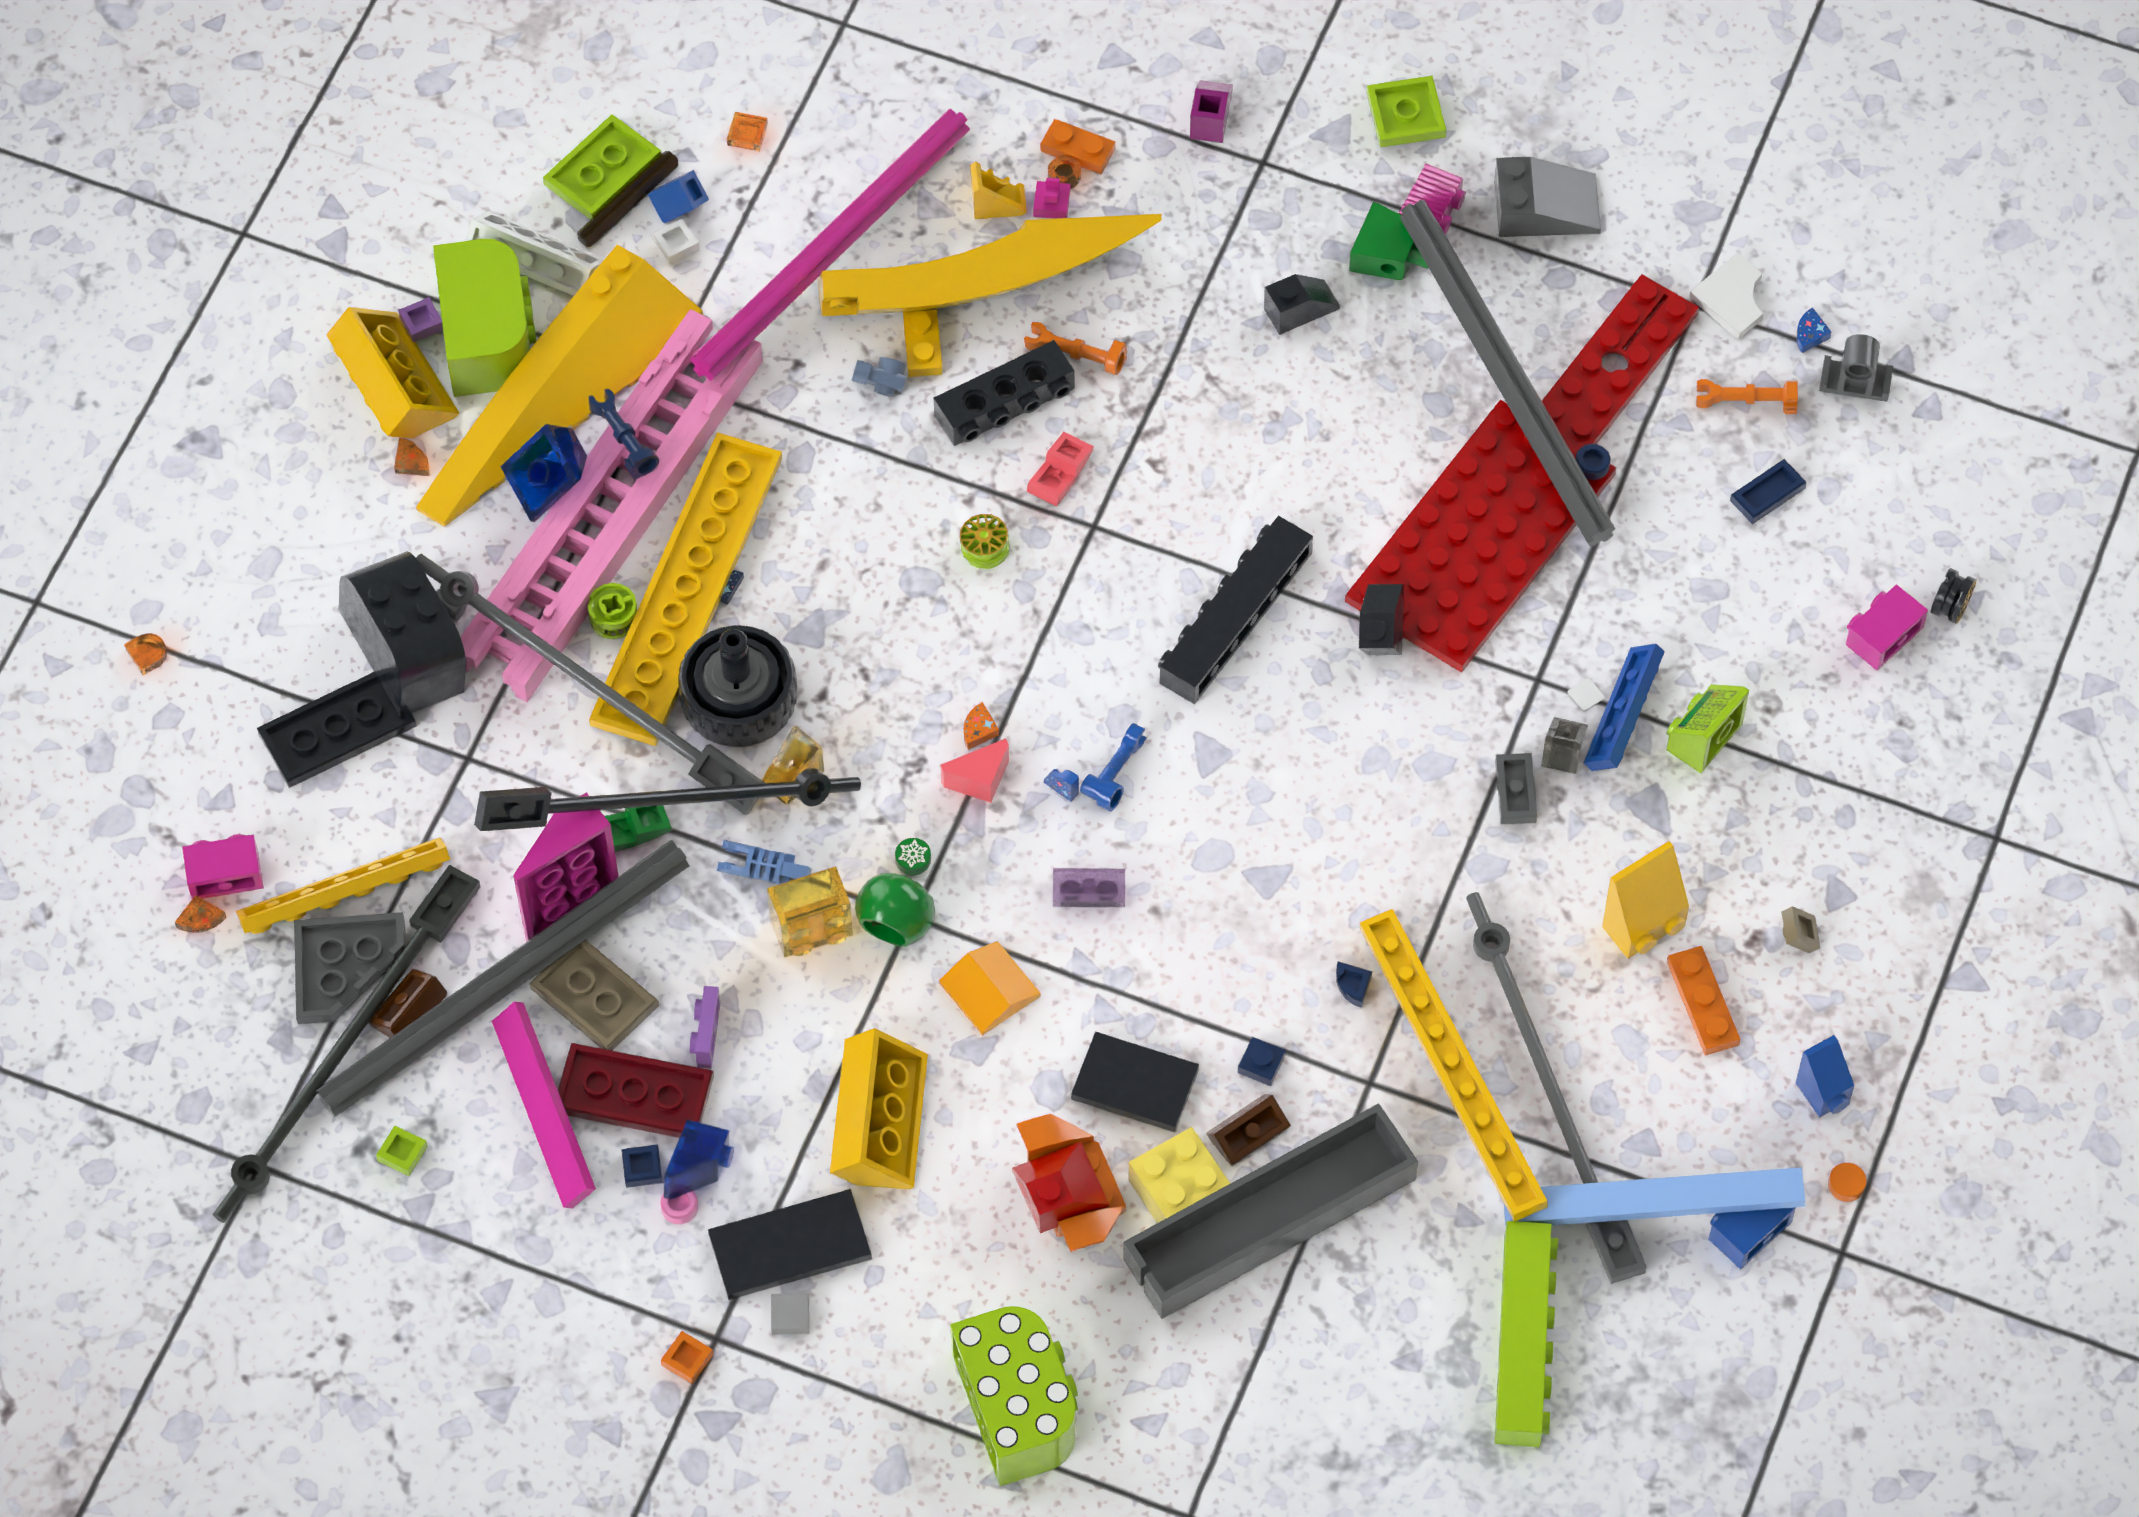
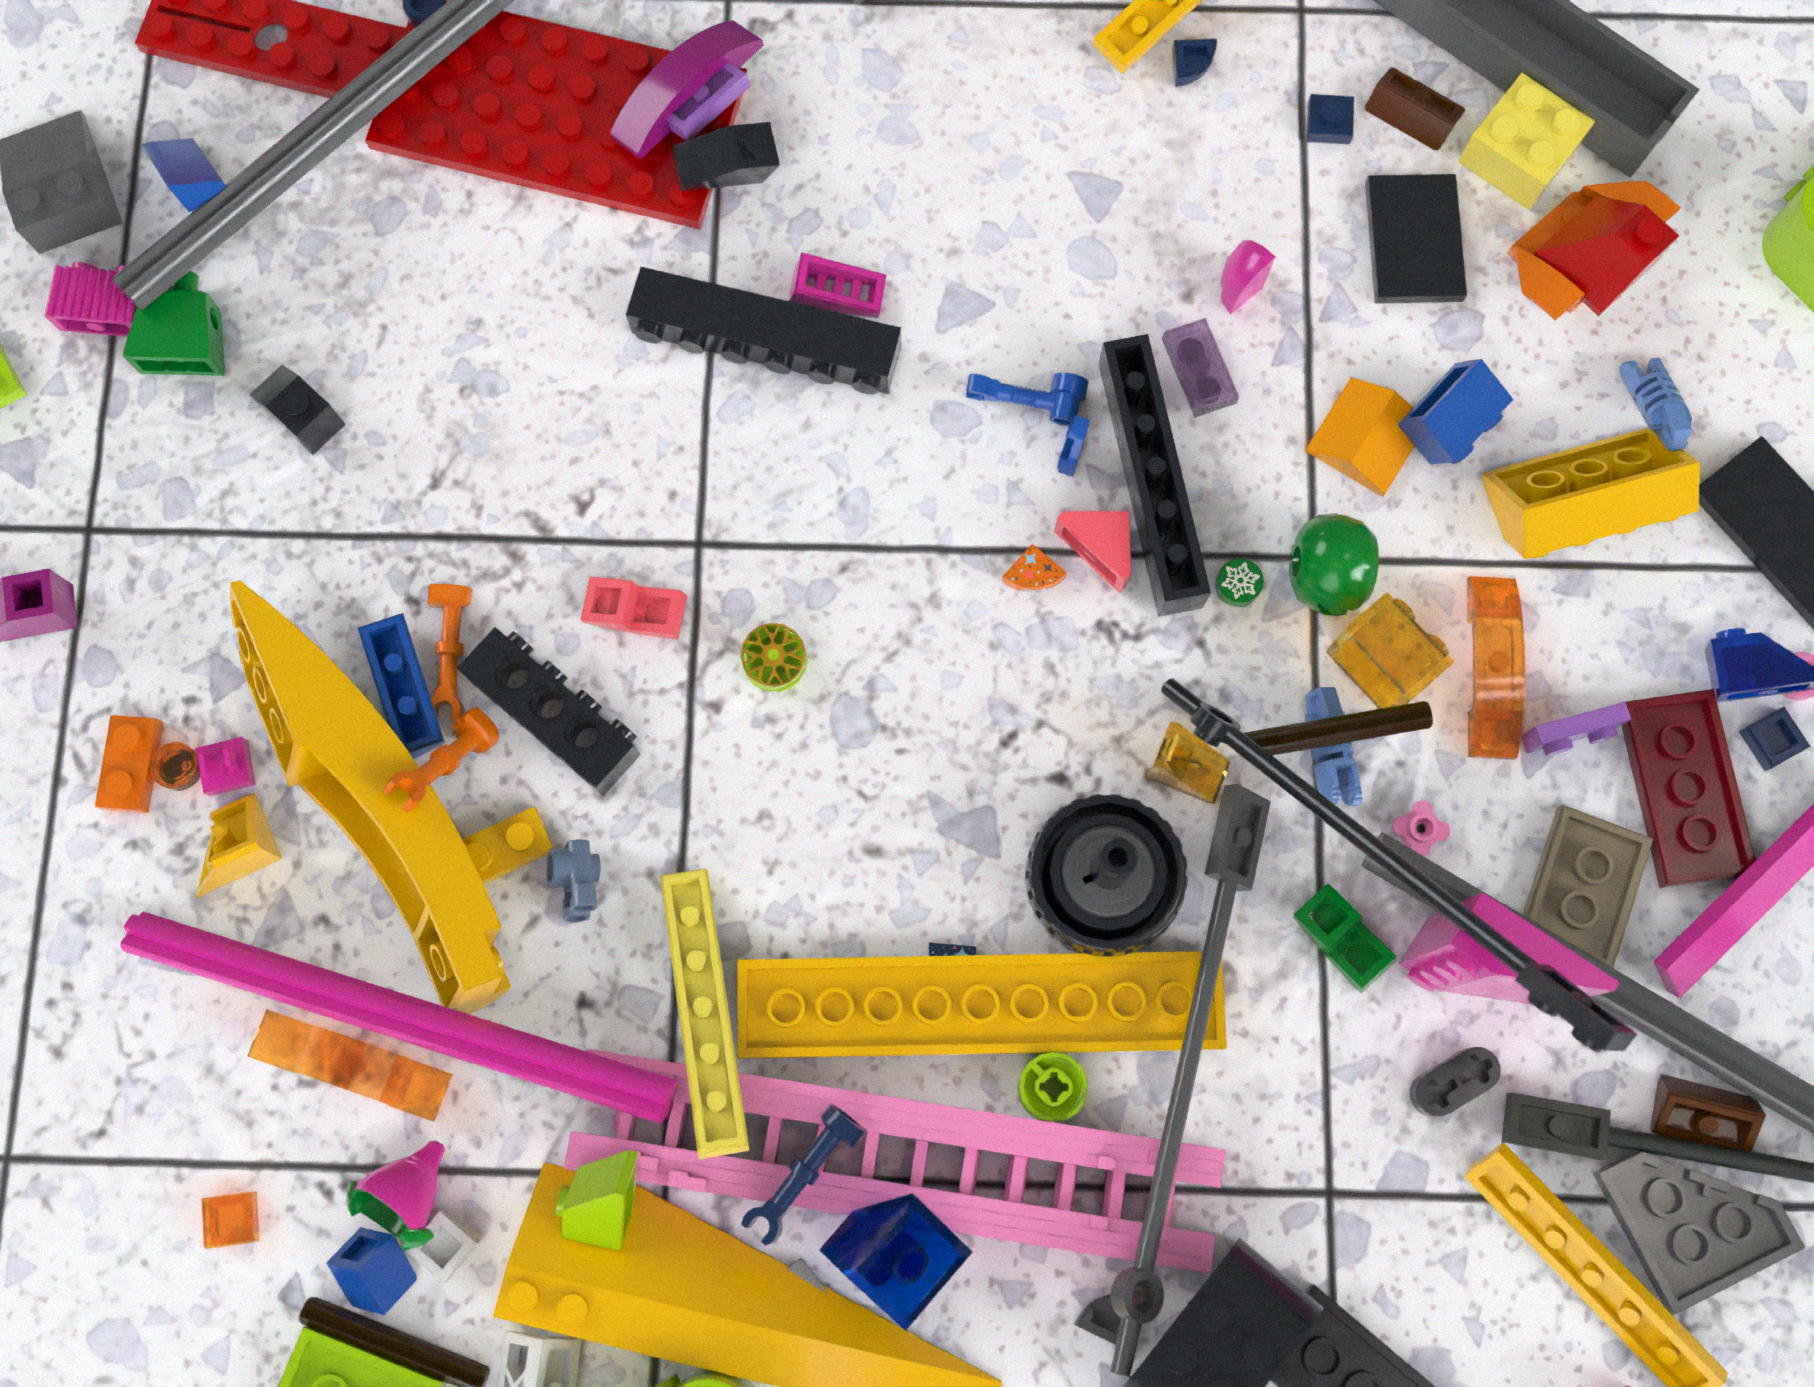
camera: 110 degrees left, 15 degrees up
(495, 858) = (1461, 1092): none -> black beam
(657, 321) = (599, 1201): none -> lime slope
(682, 911) = (1407, 831): none -> bright pink plate
(717, 222) = (400, 1195): none -> dark pink hat
(755, 415) = (704, 1015): none -> light yellow tile
(771, 854) = (1344, 728): none -> dark brown axle
(782, 996) = (1497, 668): none -> clear orange slope
(839, 189) = (350, 1064): none -> clear orange slope
(925, 1181) = (1659, 402): none -> medium blue hinge
(976, 1039) = (1456, 412): none -> blue brick
(1006, 345) = (473, 733): none -> orange piece
(1013, 815) = (1153, 476): none -> black brick
(1060, 309) = (401, 684): none -> blue slope
(1150, 941) = (1245, 273): none -> dark pink brick
(1267, 646) = (834, 301): none -> dark pink slope
(1436, 615) = (708, 101): none -> medium lavender plate
(1460, 608) = (676, 79): none -> magenta slope
(1506, 269) = (185, 171): none -> blue slope

